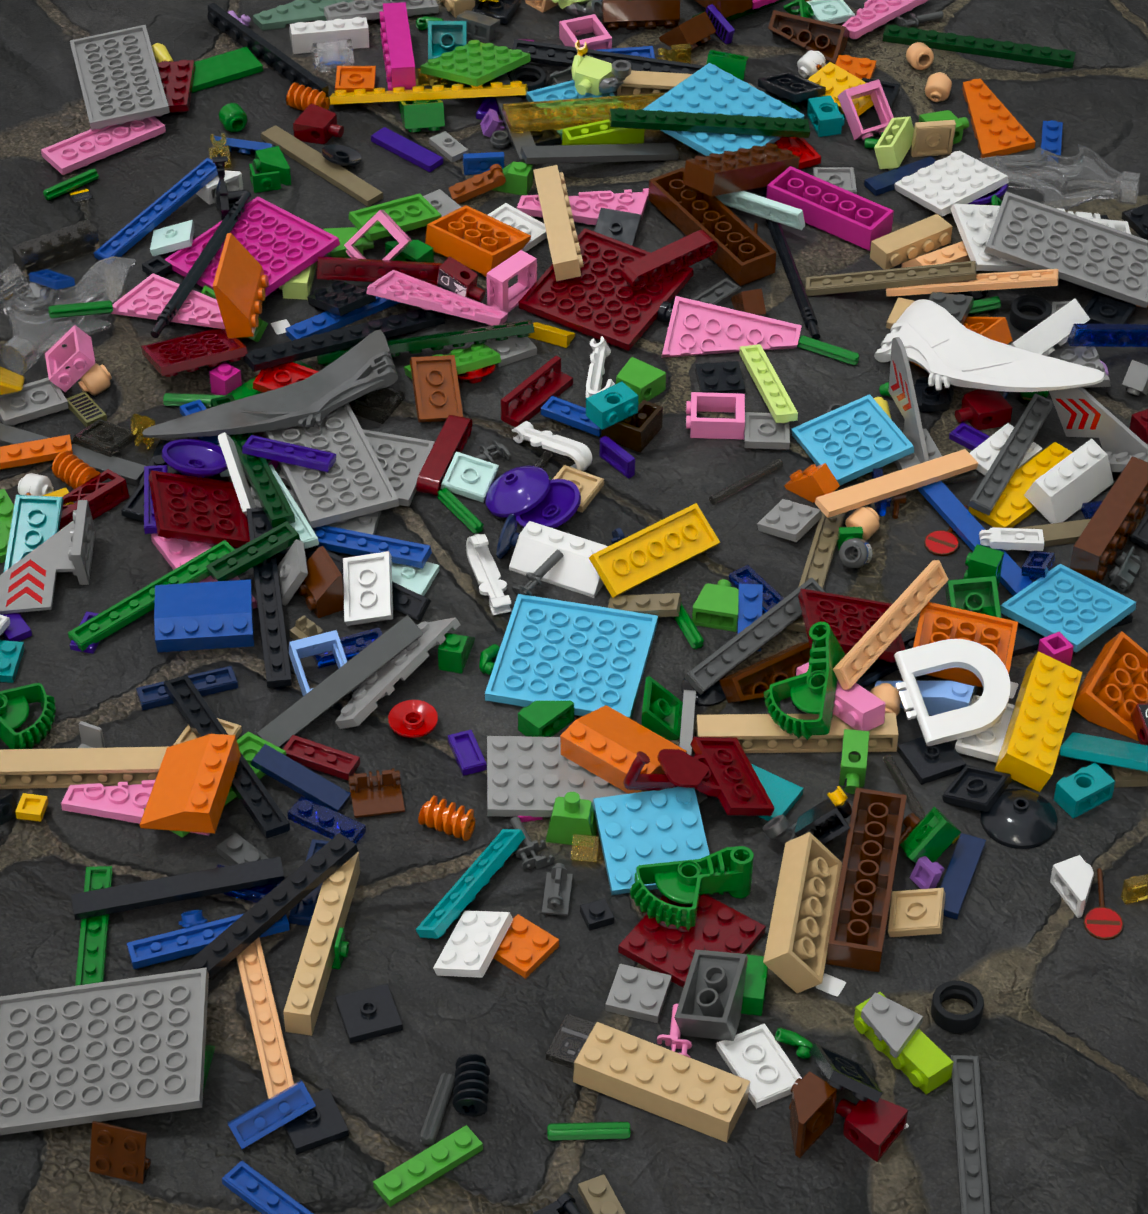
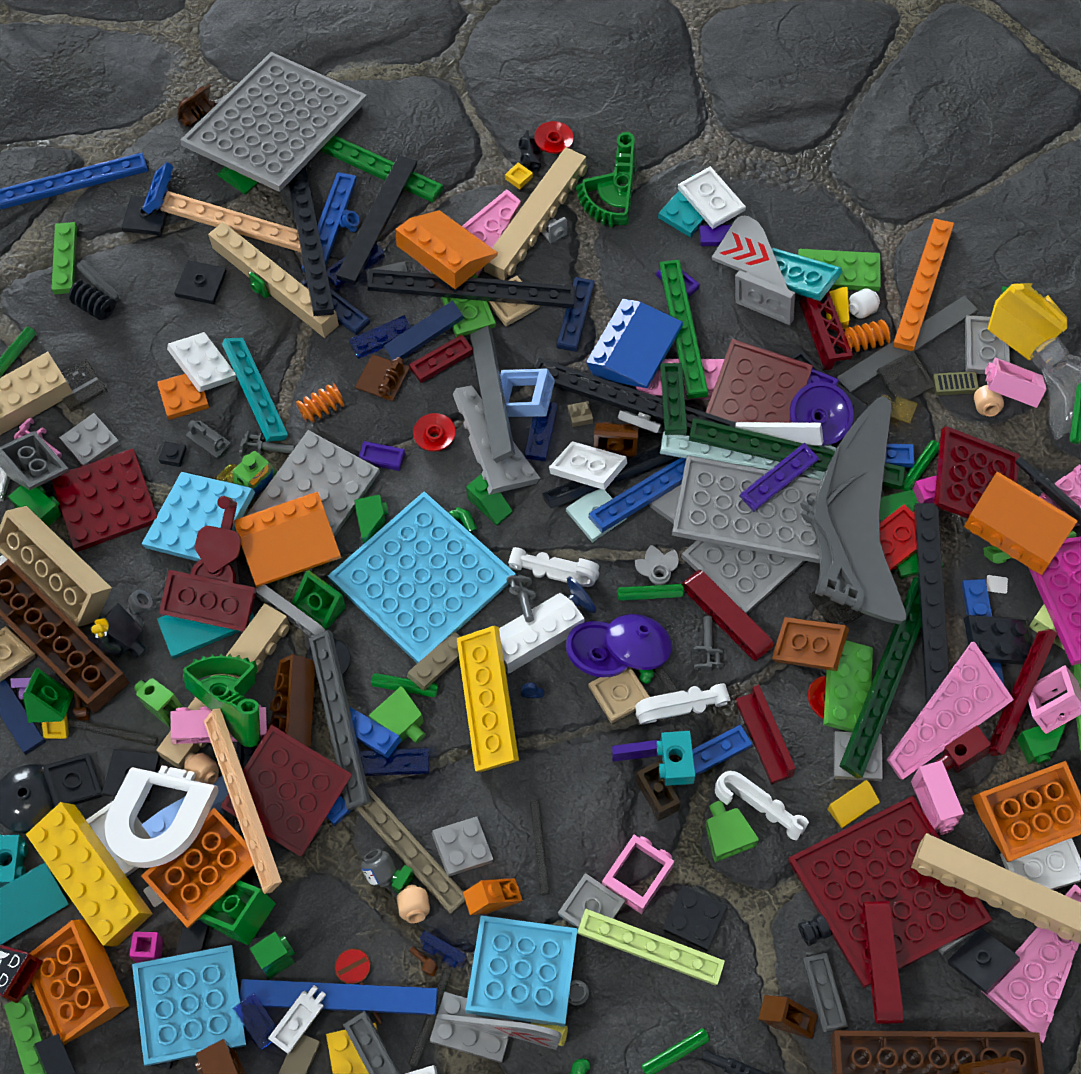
camera: 125 degrees right, 20 degrees up
(429, 516) = (656, 563): none -> light grey plate
(469, 476) = (686, 619): light aqua plate -> none
(688, 880) = (128, 532): green arm -> none
(713, 329) = (758, 955): bright pink wing -> none
(896, 483) = (429, 961): light nougat tile -> none

